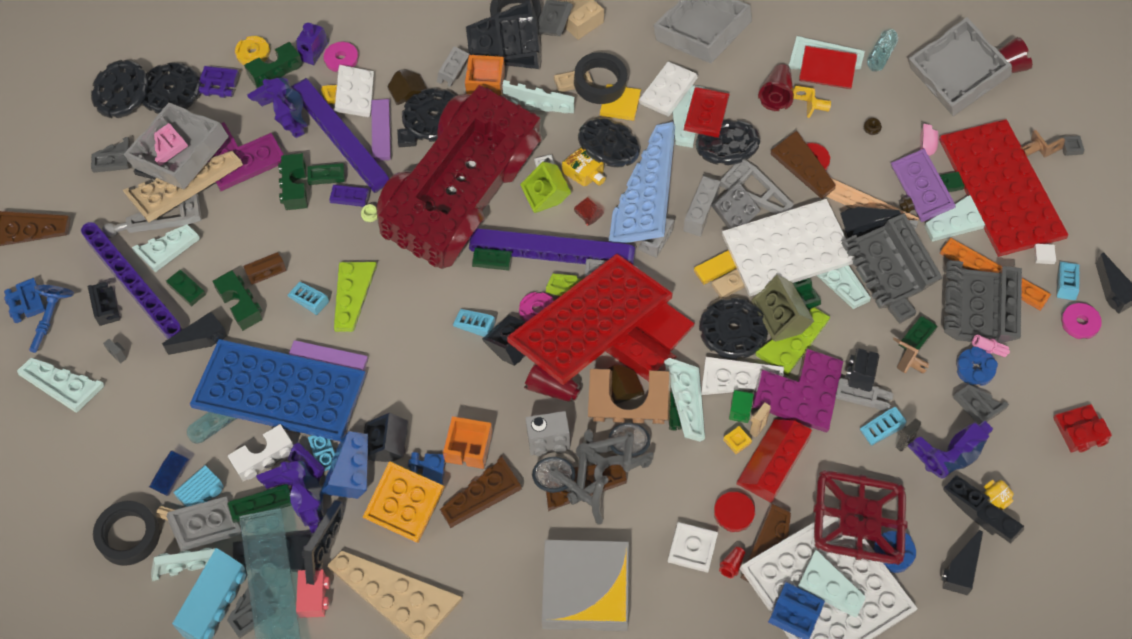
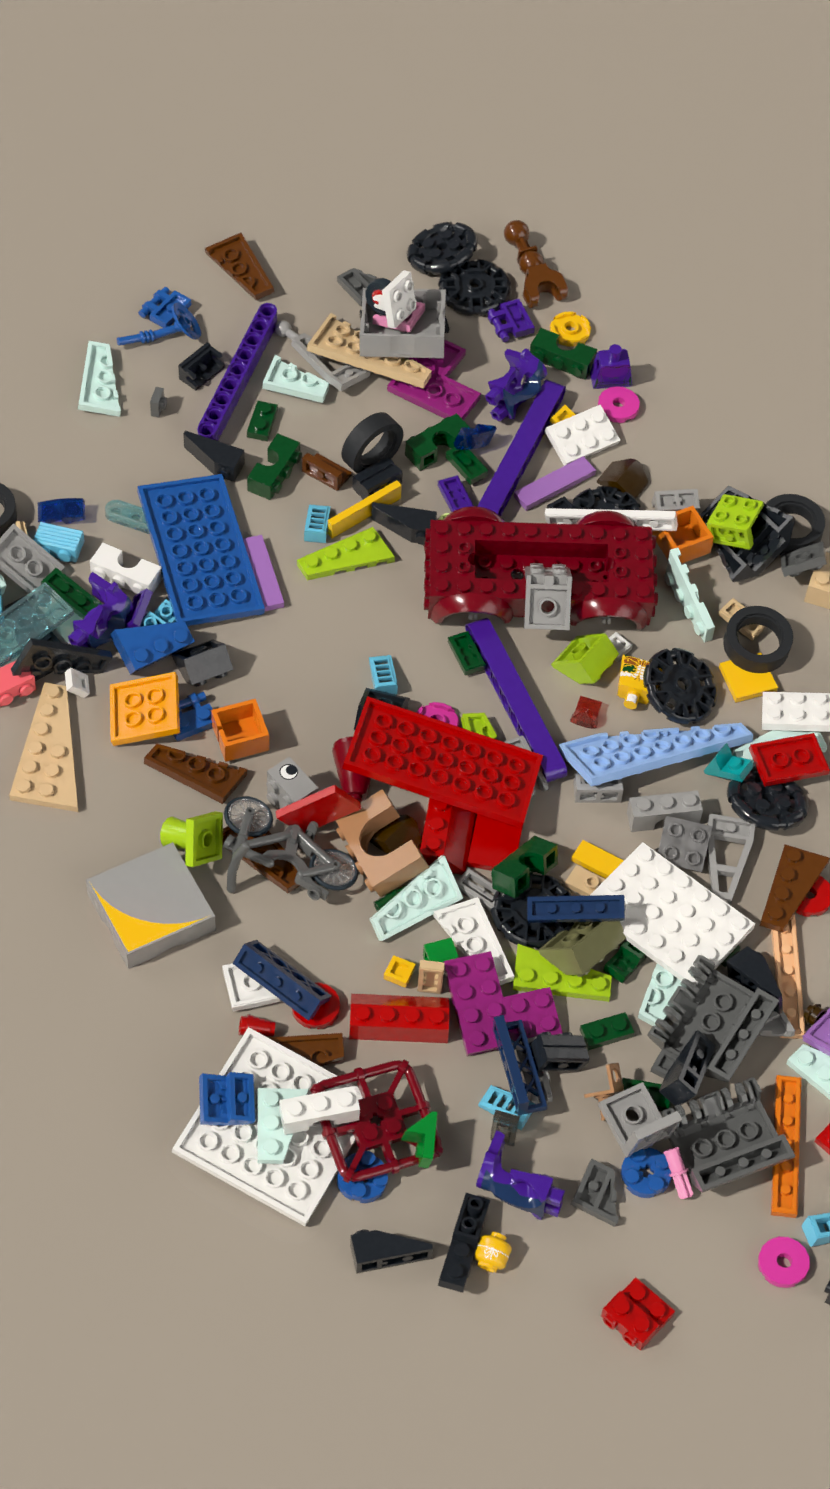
camera: 55 degrees right, 5 degrees down
(155, 138) = (392, 298): none -> white plate
(194, 44) = (538, 275): none -> reddish brown piece
(273, 221) = (364, 434): none -> black tyre
(300, 237) = (376, 477): none -> black brick
(309, 155) = (474, 438): none -> clear blue slope
(320, 258) = (363, 509): none -> yellow tile
(344, 541) = (77, 683): none -> white plate
(354, 236) = (404, 521): none -> black slope
(431, 126) = (656, 519): none -> white tile
(487, 170) = (552, 585): none -> light grey bracket
(500, 36) = (733, 521): none -> lime bracket
(547, 523) = (198, 835): none -> lime plant
(581, 421) = (319, 807): none -> red tile
(687, 151) = (729, 766): none -> teal slope
(698, 360) = (473, 891): none -> light grey tile
(707, 323) = (512, 873): none -> dark green arch
(707, 522) = (281, 979): none -> dark blue fence
(762, 297) = (576, 908): none -> dark blue fence
(847, 549) = (335, 1105): none -> white arch
(853, 333) = (607, 1031): none -> dark green plate
(862, 403) = (513, 1067): none -> dark blue fence
(893, 487) = (424, 1135): none -> green slope
(922, 299) = (688, 1070): none -> black slope
(957, 348) = (647, 1129): none -> light grey bracket

